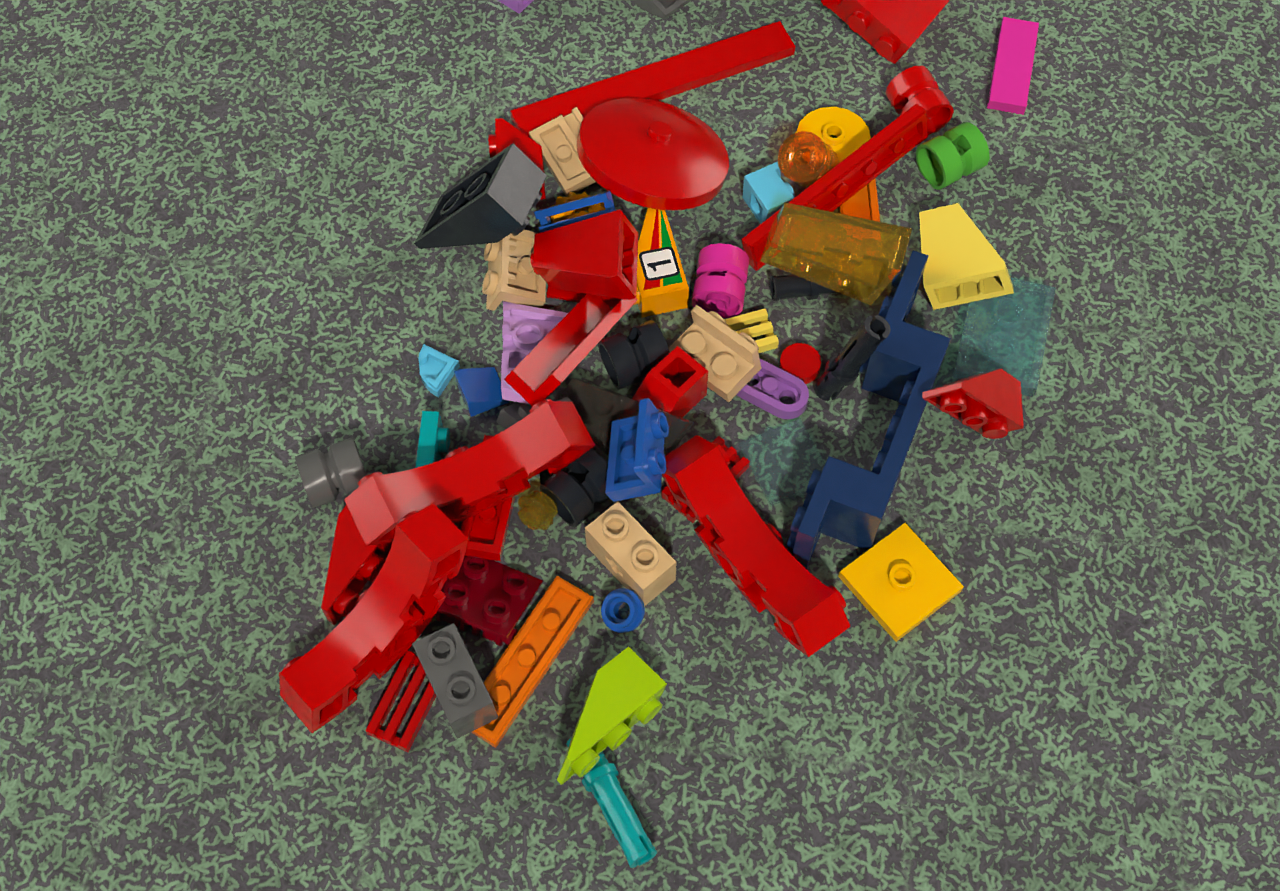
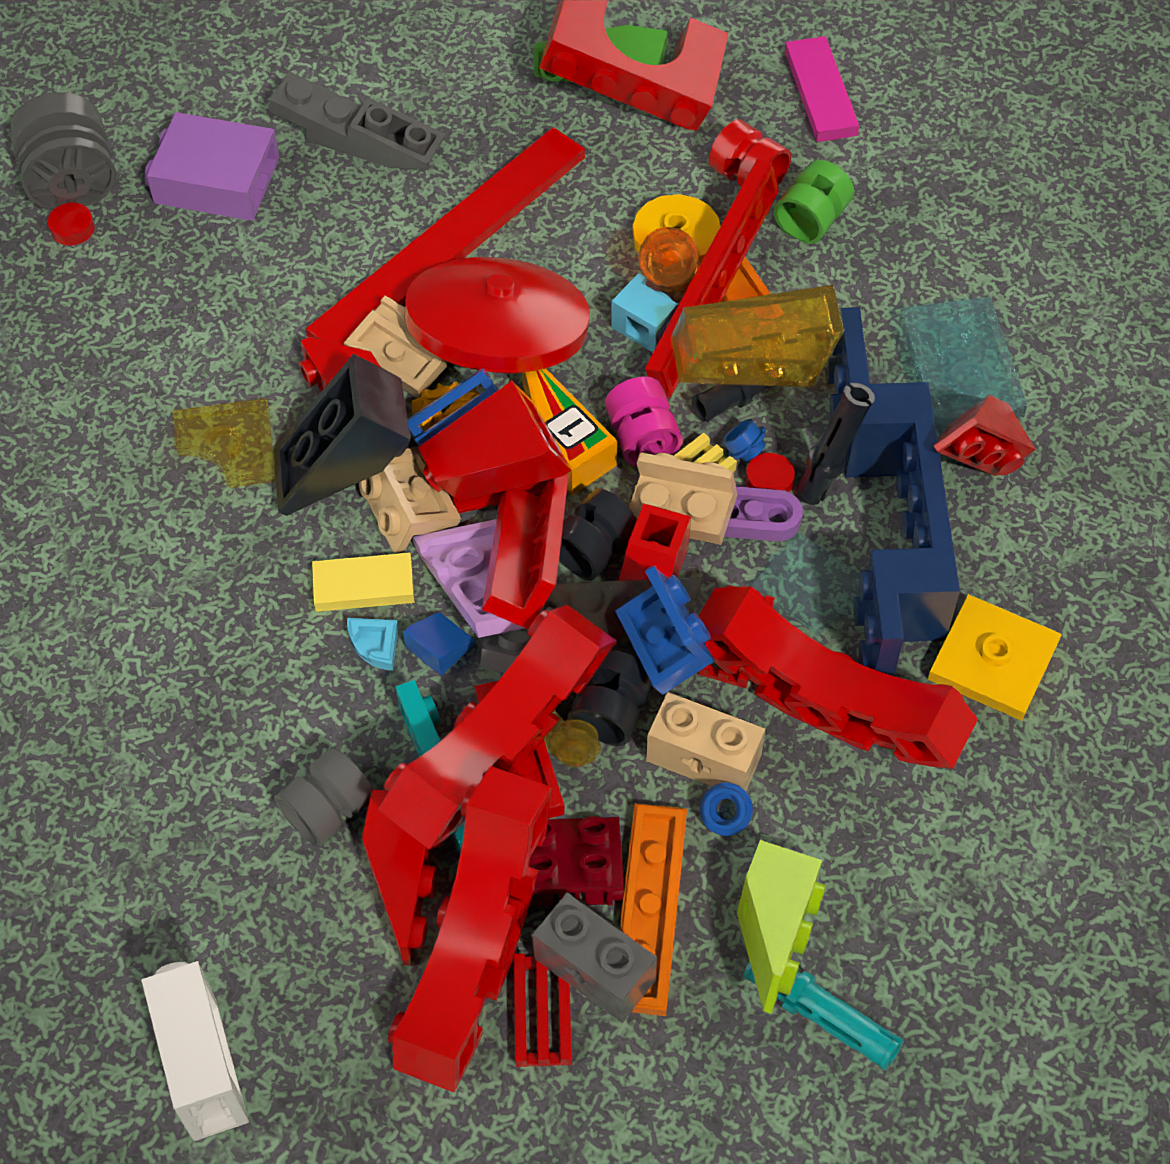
camera: 25 degrees left, 5 degrees down
(140, 619) = (194, 1050): none -> white window
(415, 173) = (231, 437): none -> clear yellow tile
(451, 321) = (363, 582): none -> light yellow tile
(794, 327) = (745, 440): none -> blue plate
(960, 259) = (893, 302): light yellow slope -> none

